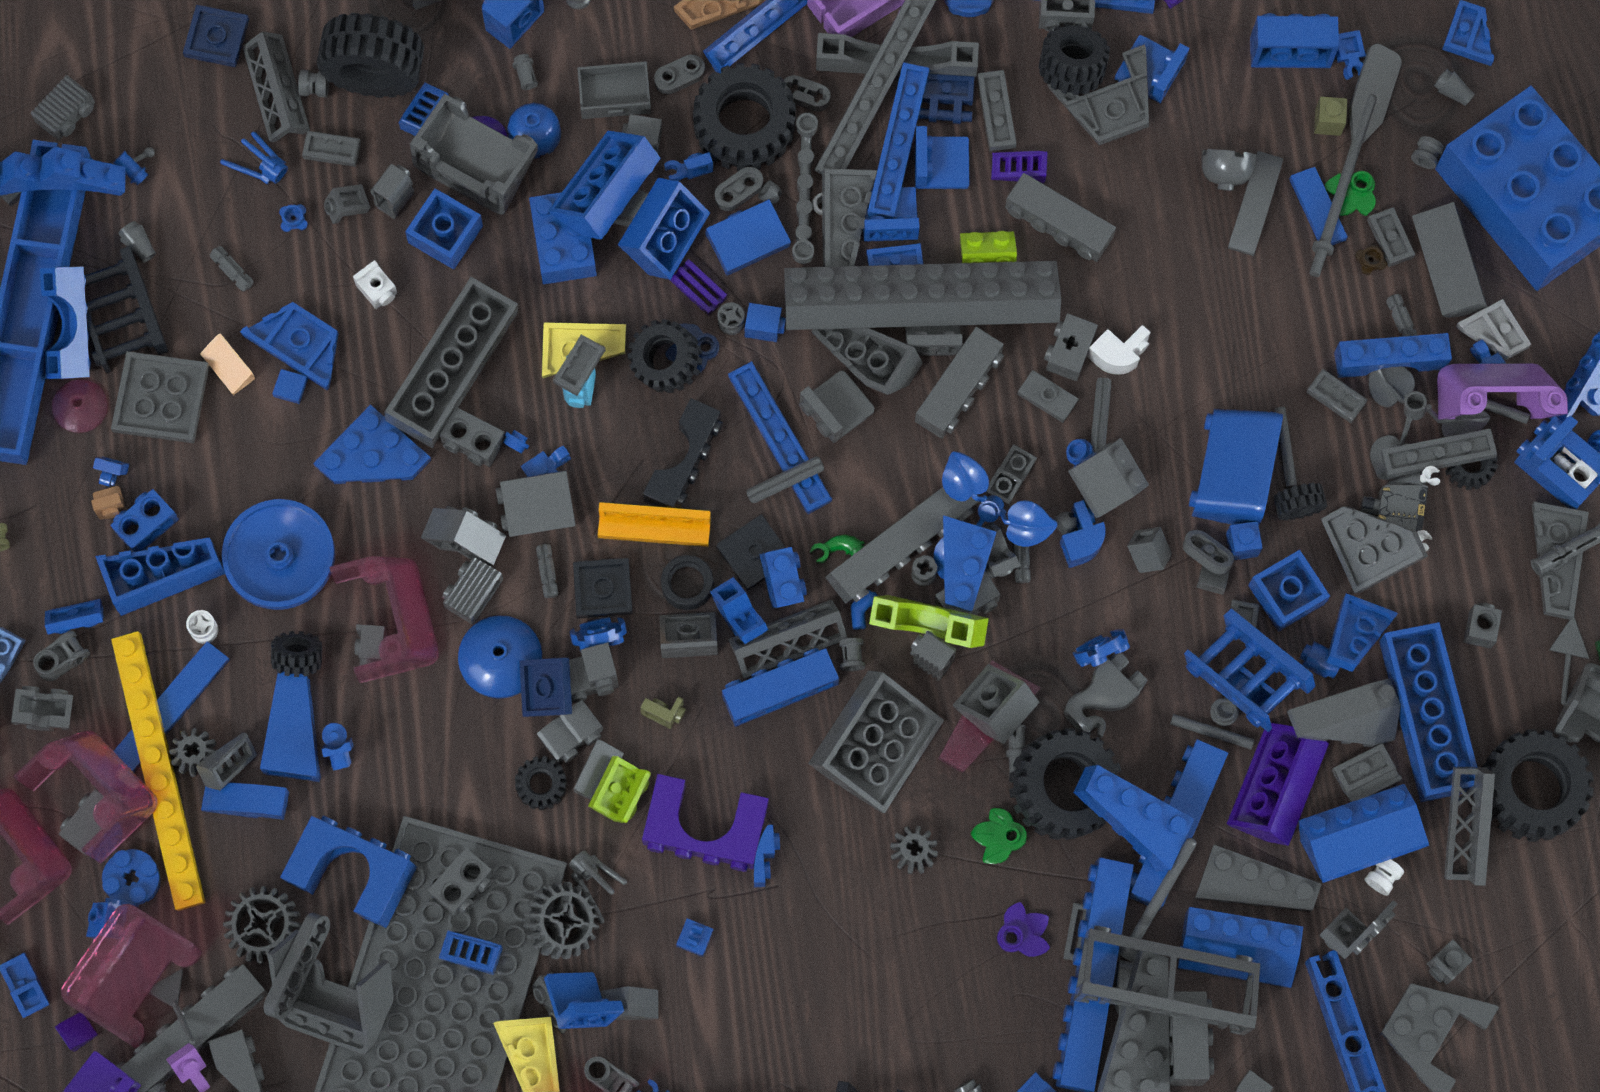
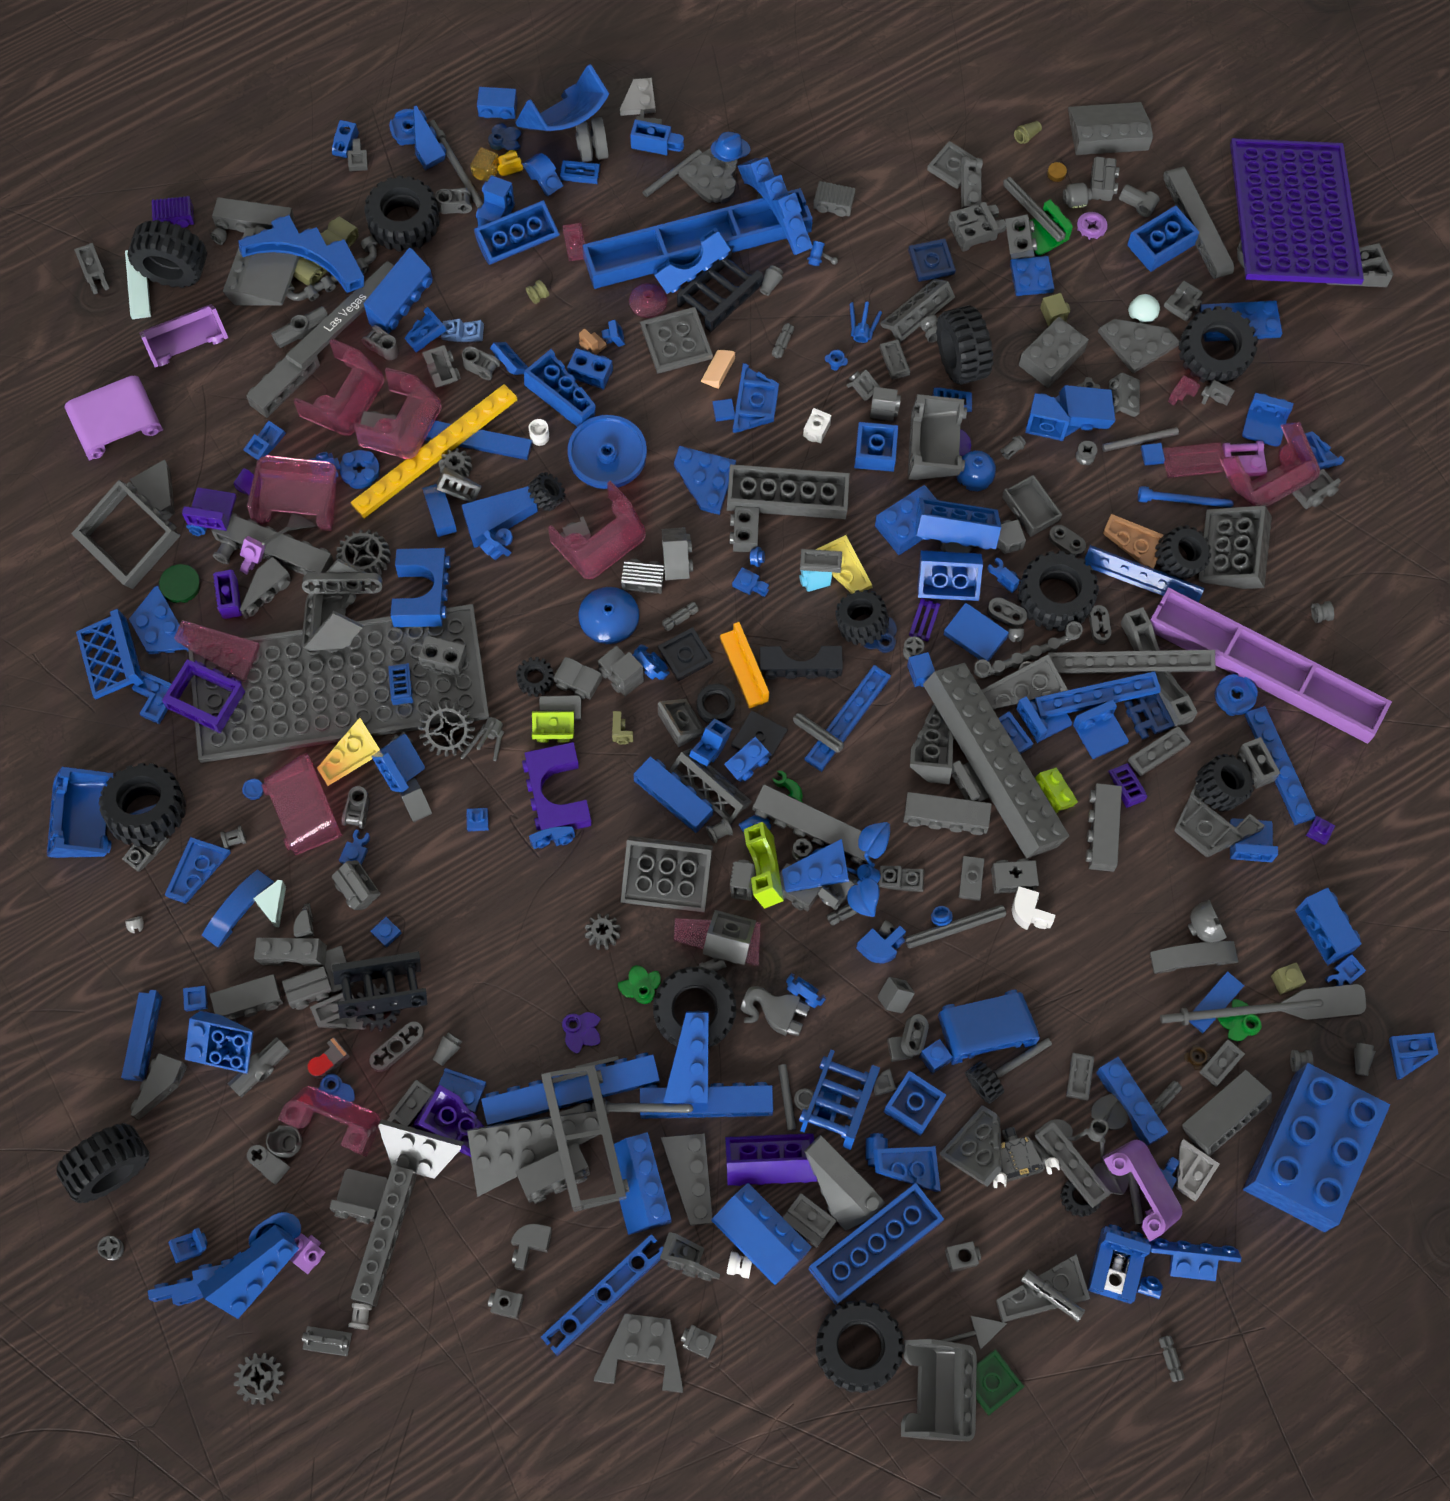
camera: 65 degrees right, 5 degrees down
(536, 503) = (720, 586): dark grey brick -> none
(545, 687) = (597, 647): dark blue plate -> none
(836, 406) = (887, 742): dark grey bracket -> none
(1108, 477) = (929, 939): dark grey slope -> none
(1480, 825) = (803, 1317): dark grey fence -> none

